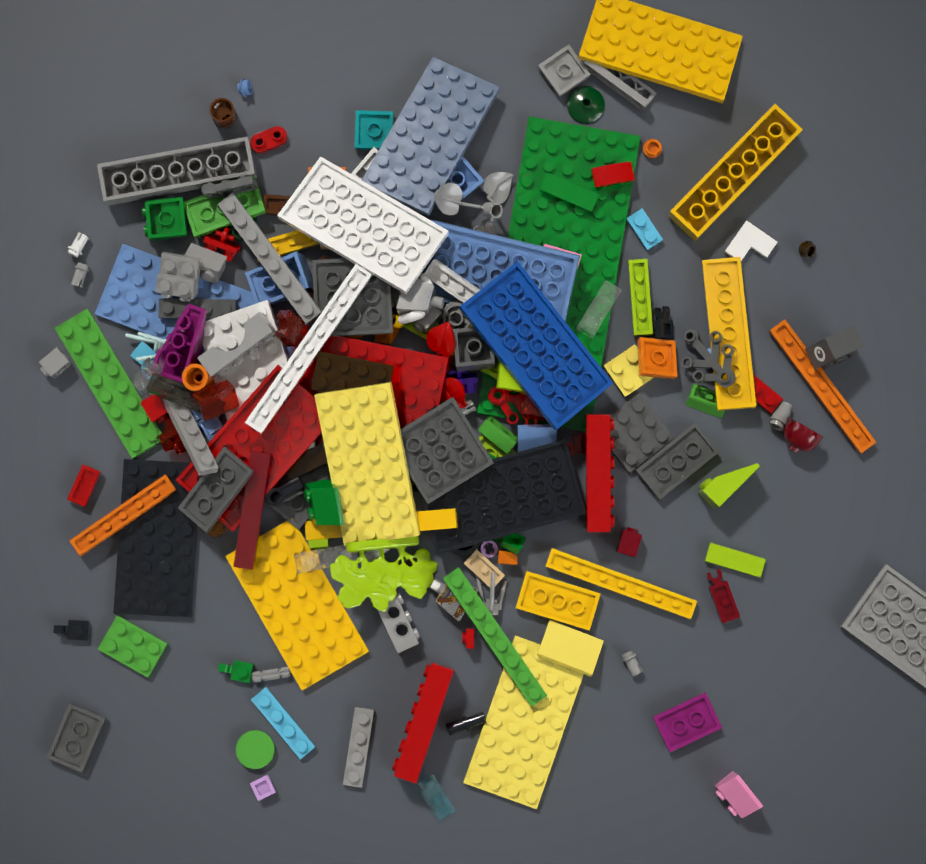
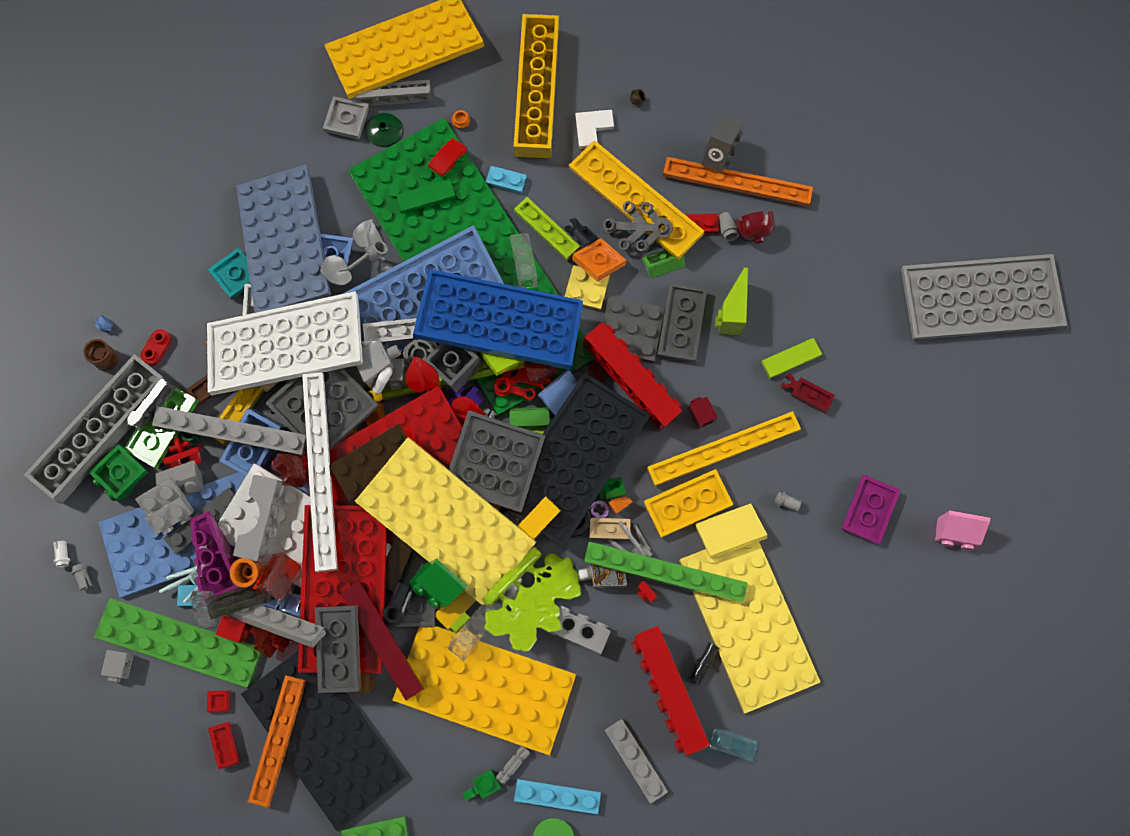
camera: 35 degrees left, 10 degrees down
(104, 450) = (218, 701): none -> red tile

